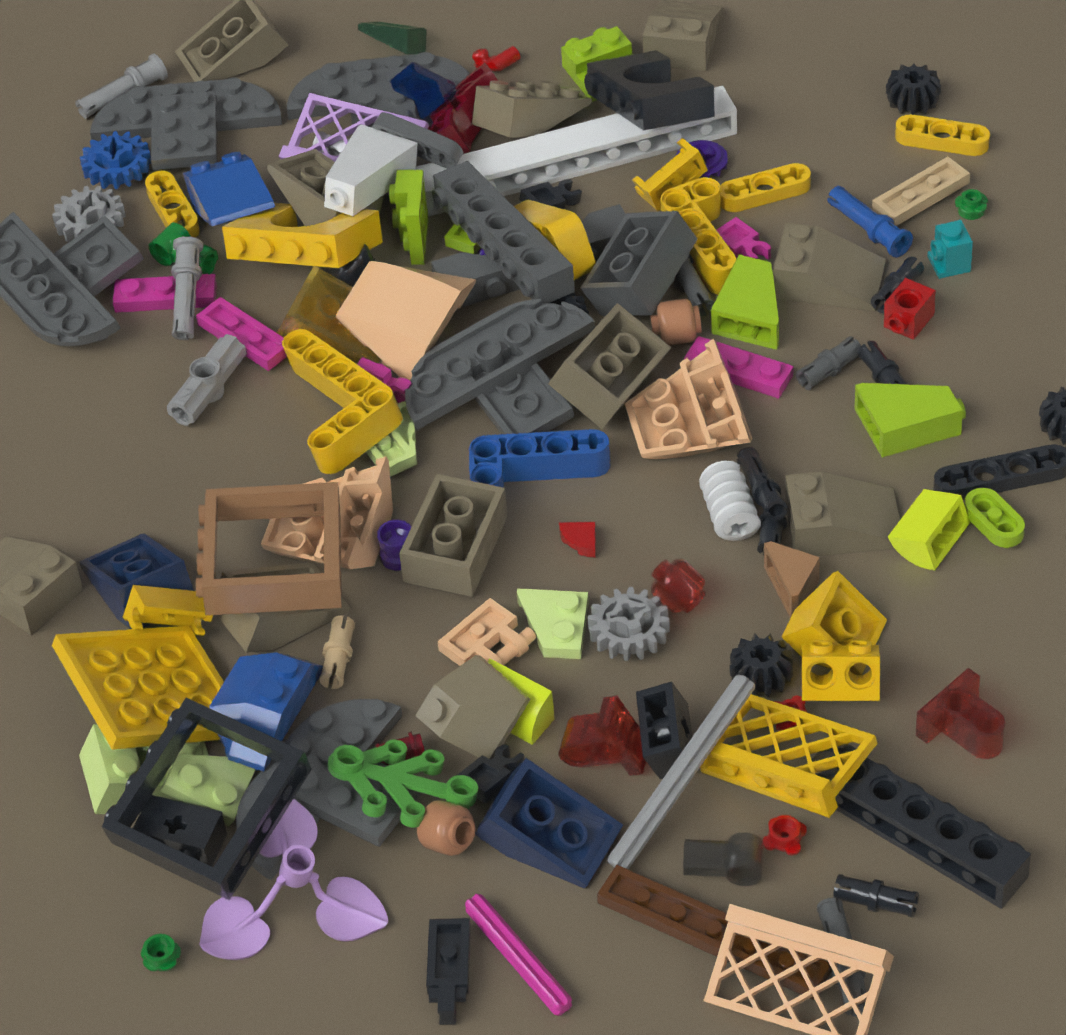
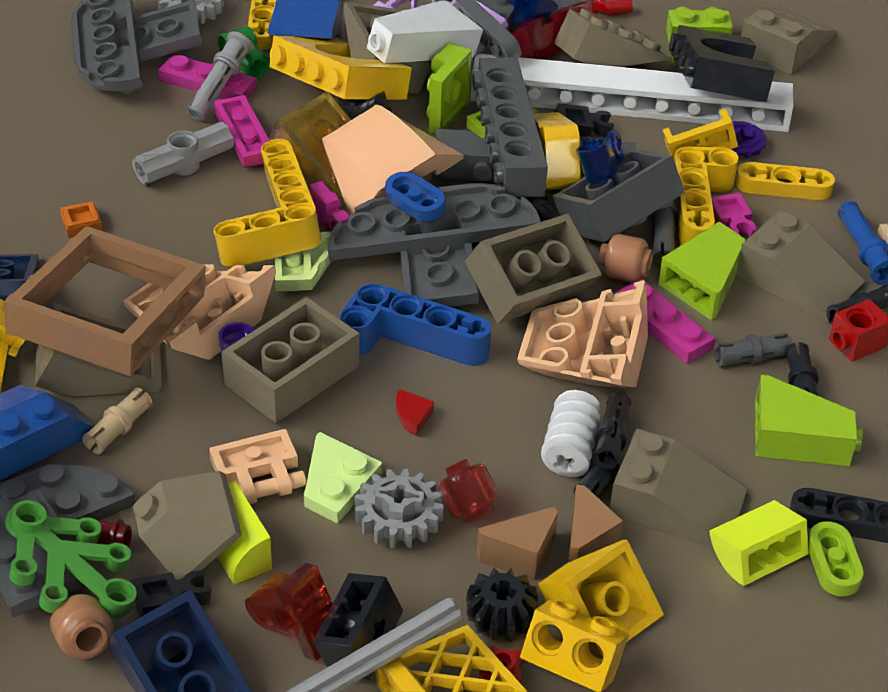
camera: 20 degrees right, 5 degrees down
(156, 484) = (79, 216): none -> orange tile
(470, 339) = (415, 196): none -> blue plate
(609, 235) = (601, 156): none -> clear blue piece
(742, 611) = (518, 542): none -> medium nougat slope

